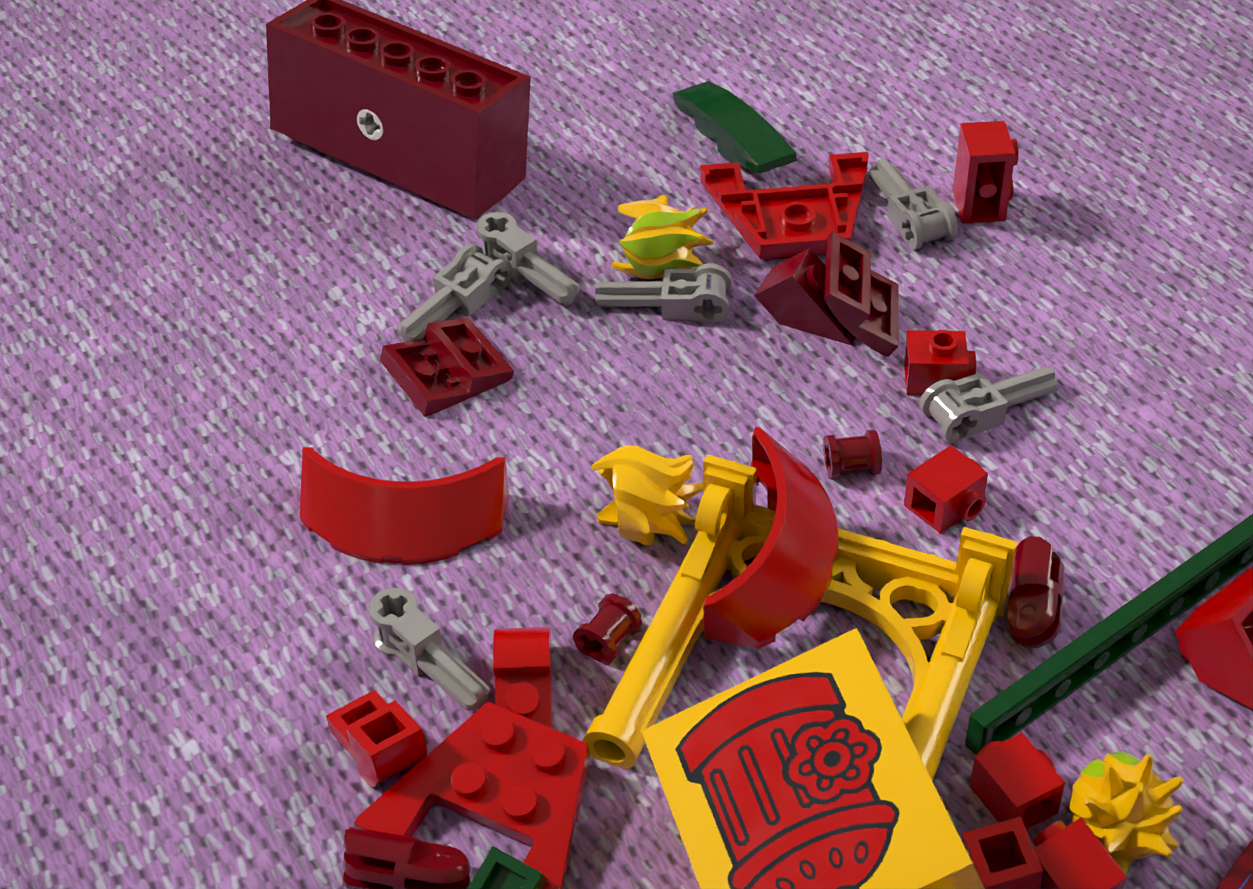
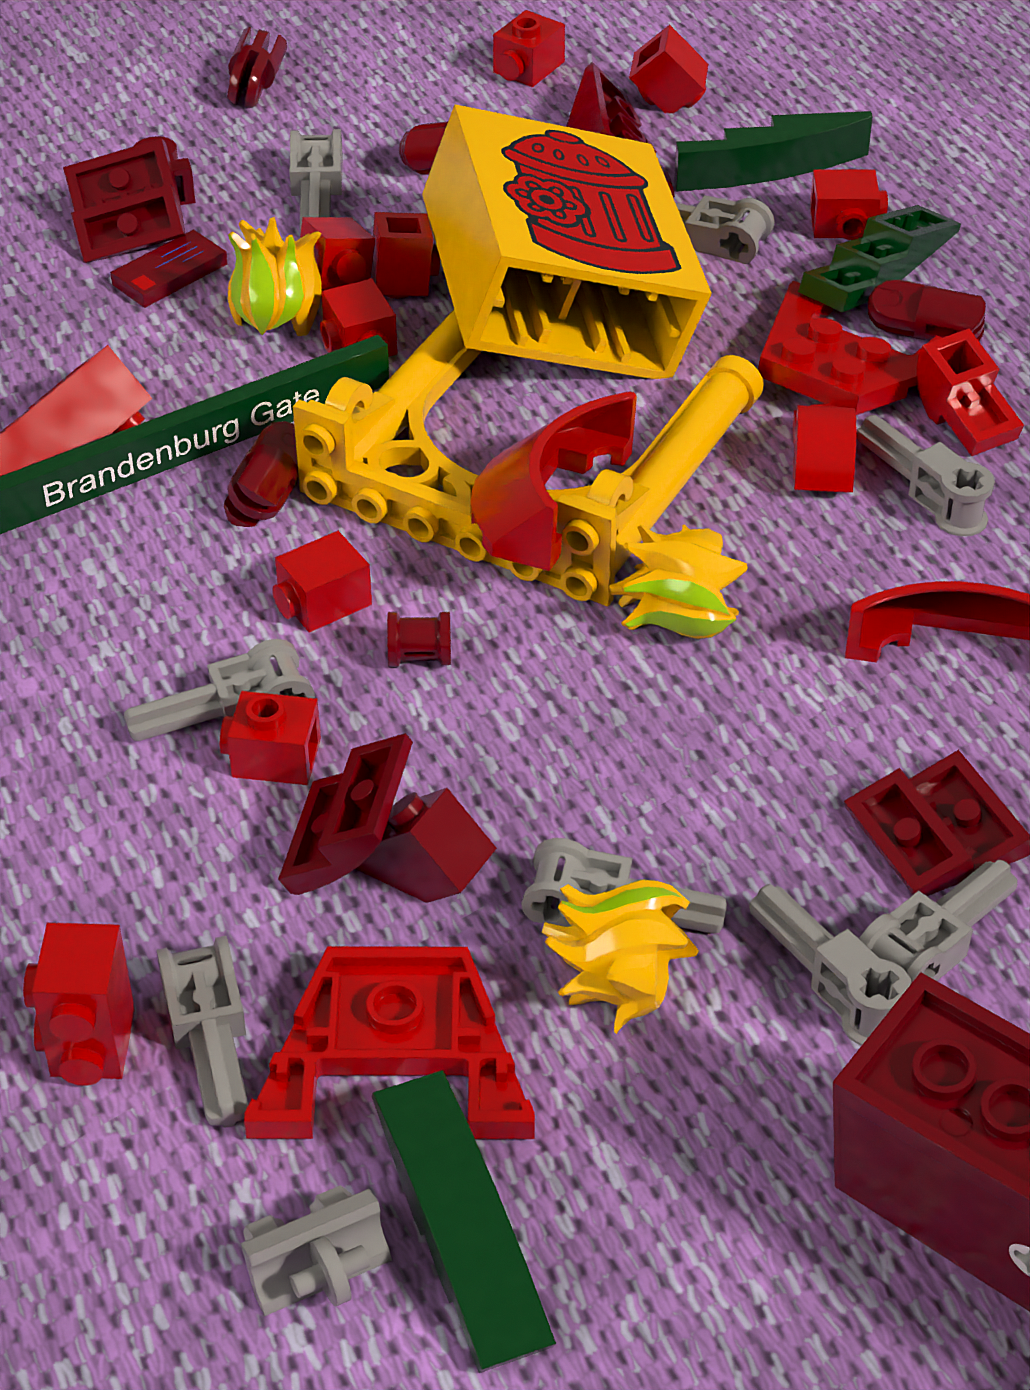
camera: 175 degrees left, 0 degrees up
(608, 628) = (733, 481): dark red bush -> none
(805, 102) = (315, 1251): none -> light grey hips

